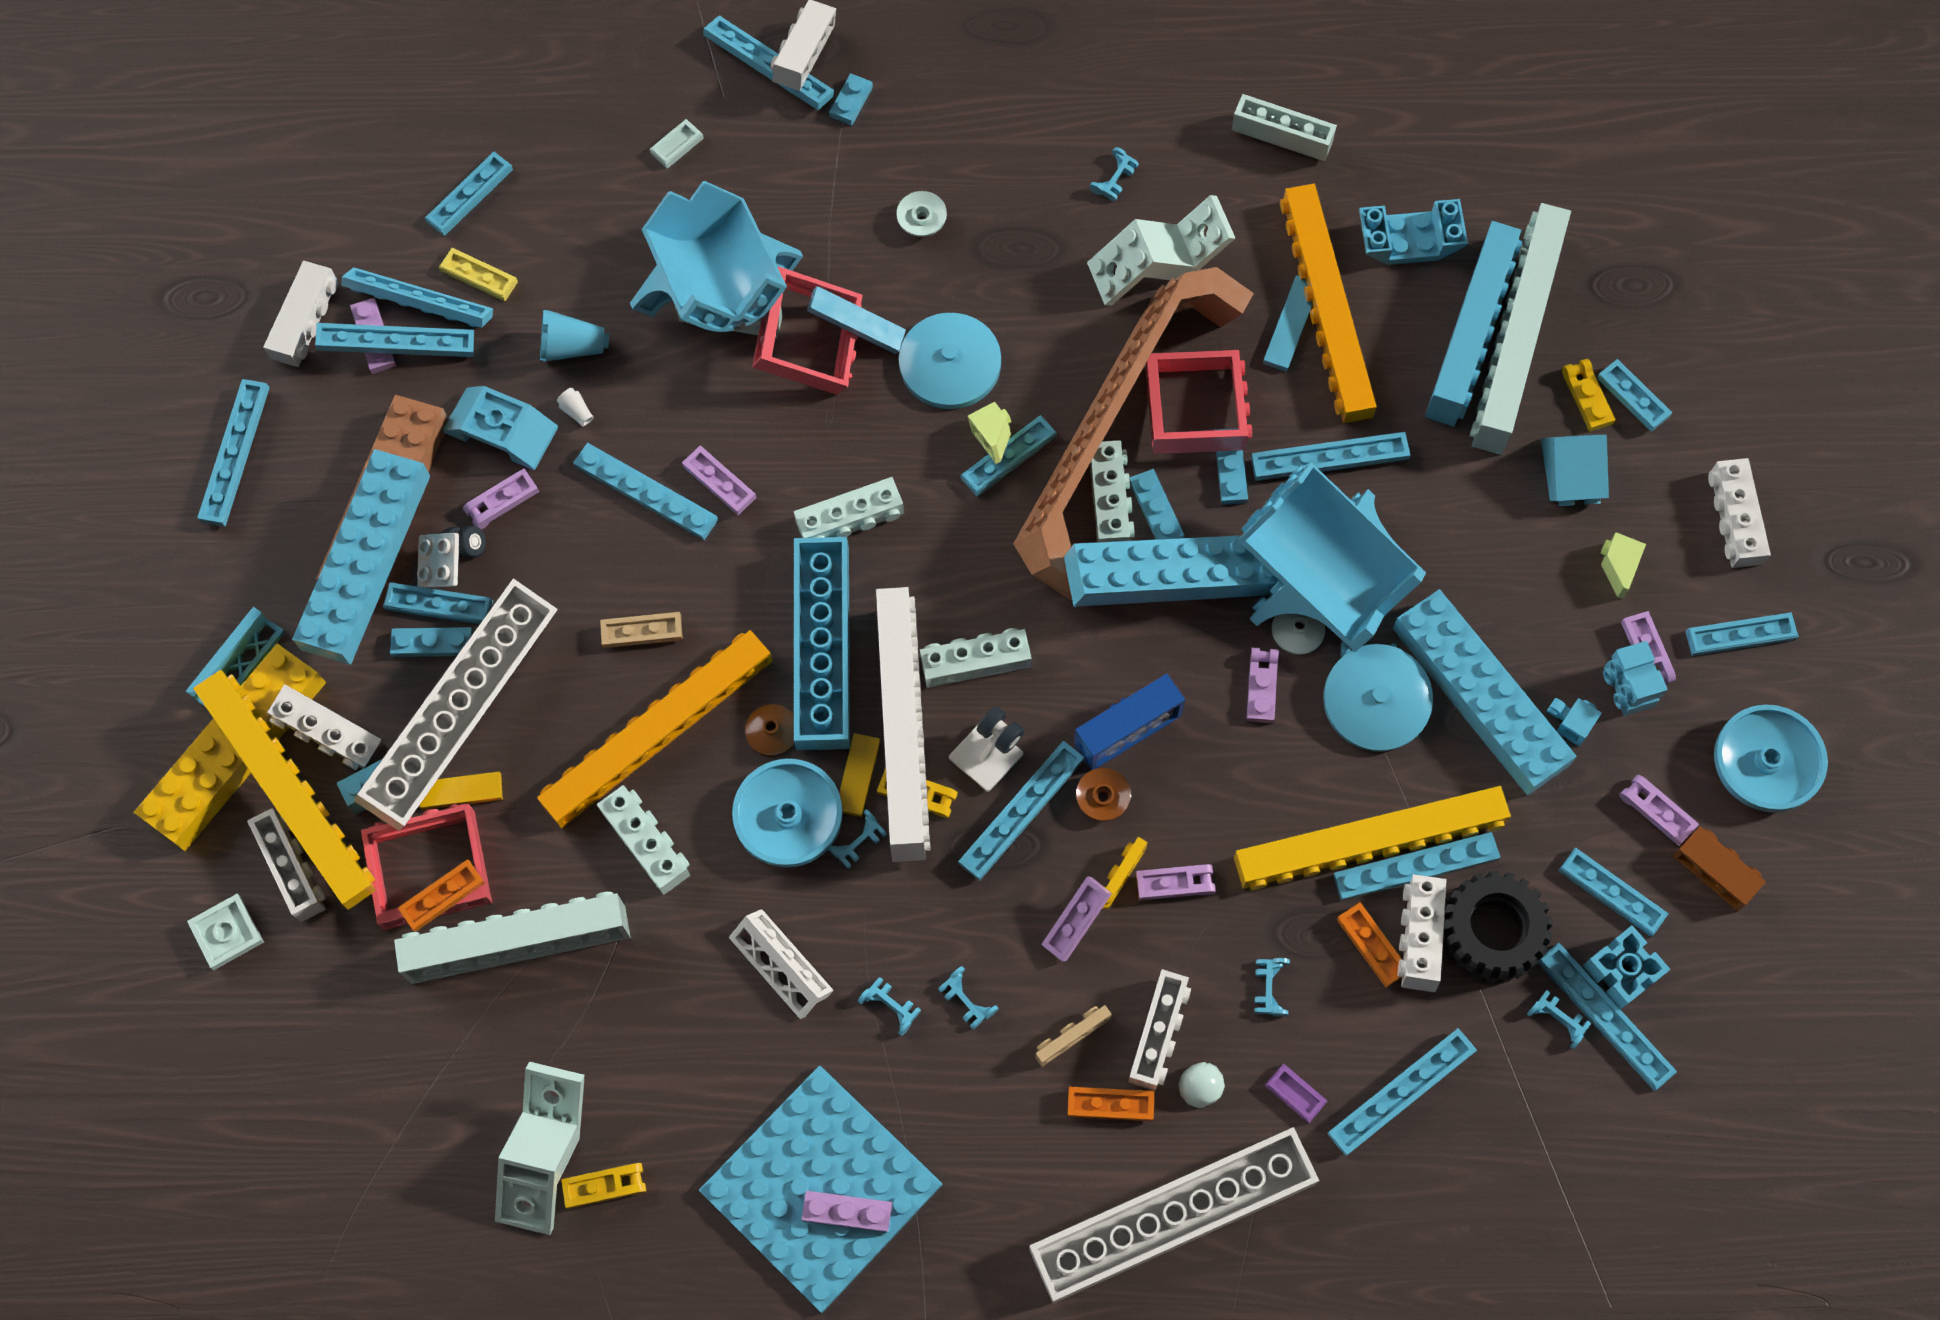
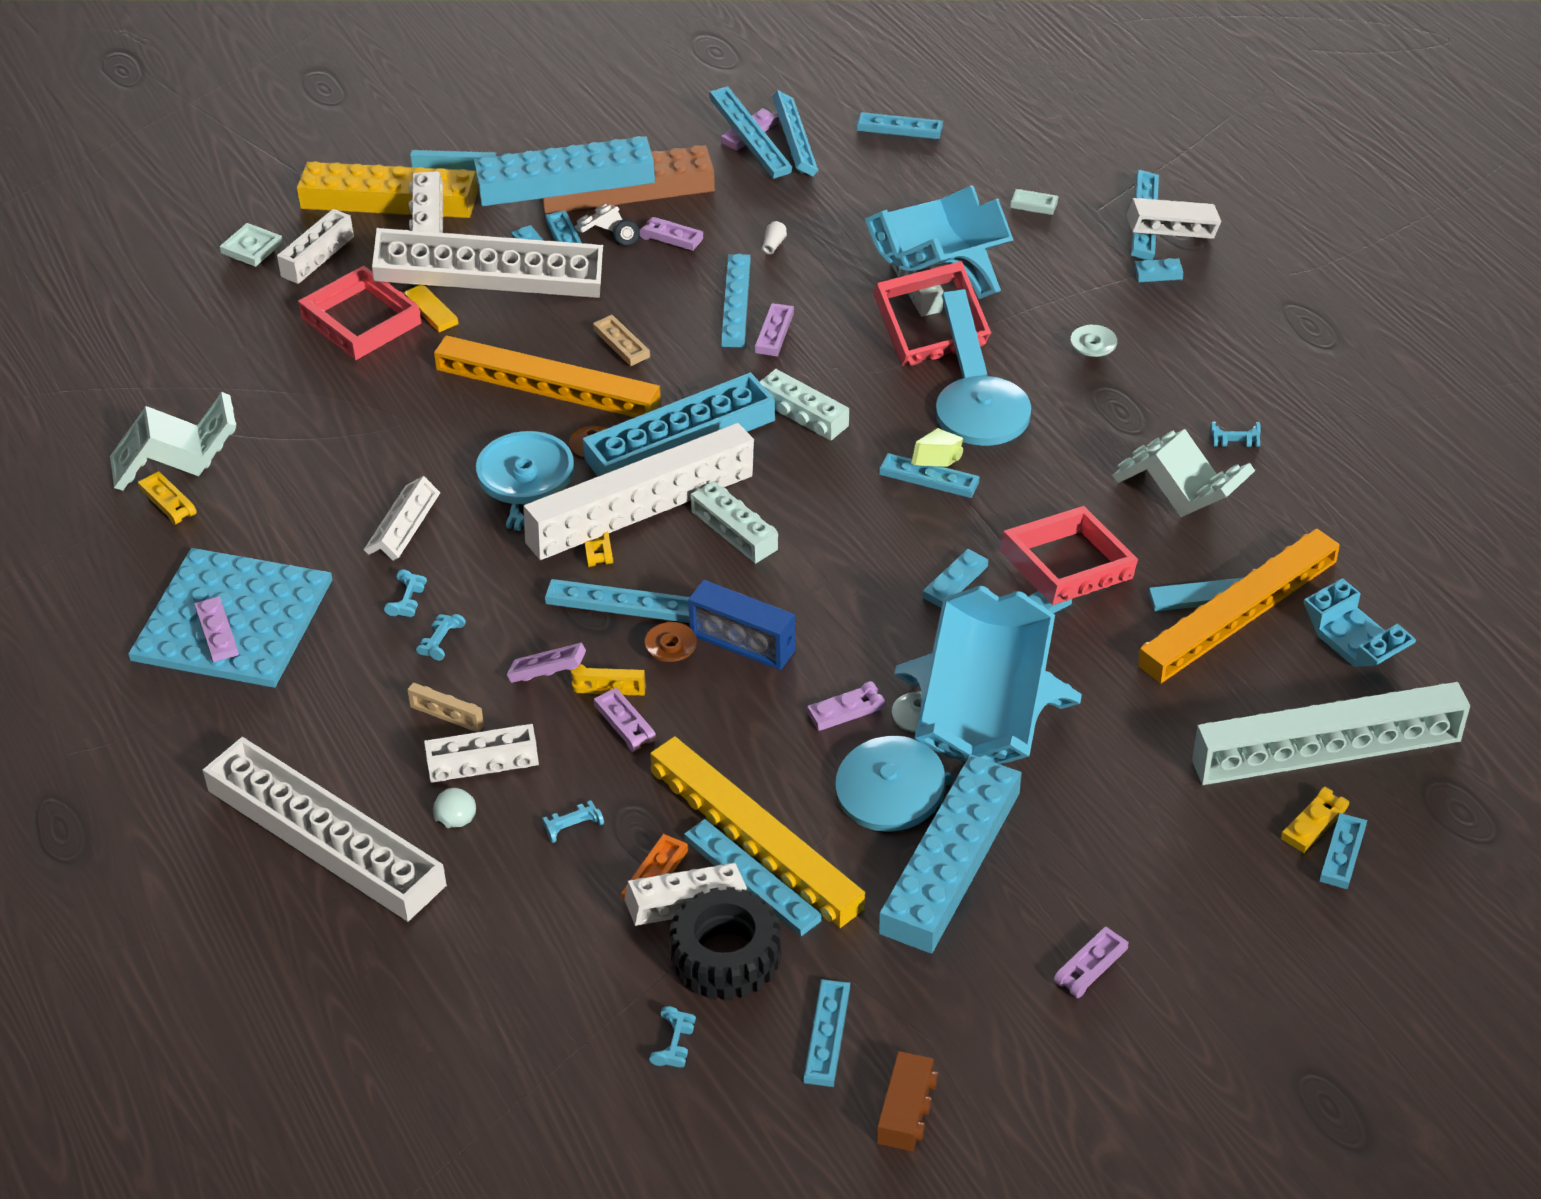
camera: 60 degrees right, 25 degrees down
(233, 453) = (608, 105): medium azure plate -> none
(285, 790) = (364, 212): yellow brick -> none
(301, 313) = (745, 84): white brick -> none
(441, 895) = (336, 316): orange plate -> none
(478, 274) = (840, 155): light yellow tile -> none
(502, 424) = (727, 210): medium azure slope -> none
(512, 938) = (330, 369): light aqua brick -> none
(569, 337) = (821, 205): medium azure cone -> none
(644, 840) = (452, 407): light aqua brick -> none
(989, 749) = (661, 561): white plate -> none
(1044, 534) = (1140, 492): nougat arch -> none
(1109, 493) = (941, 541): light aqua brick -> none
(1111, 1104) = (401, 756): orange plate -> none
(1164, 571) = (880, 571): medium azure brick -> none
(1283, 127) = (1376, 508): light aqua brick -> none
(1296, 1093) = (484, 876): medium lavender tile -> none
(1331, 455) = (1102, 669): medium azure plate -> none
(1401, 1092) = (530, 946): medium azure plate -> none
(1475, 324) = (1299, 688): medium azure brick -> none
(1576, 468) = (1228, 830): medium azure slope -> none
(1576, 721) = (977, 932): medium azure brick -> none
(1606, 1017) = (698, 1076): medium azure tile -> none
(1621, 561) = (1162, 906): yellowish green slope -> none
(1627, 950) = (751, 1059): medium azure brick -> none
(1634, 678) = (1045, 949): medium azure brick -> none
(1659, 810) = (934, 1030): lavender plate -> none
(1739, 513) = (1290, 976): white brick -> none
(1741, 634) = (1168, 1033): medium azure tile -> none
(1770, 758) = (1048, 1094): medium azure dish -> none

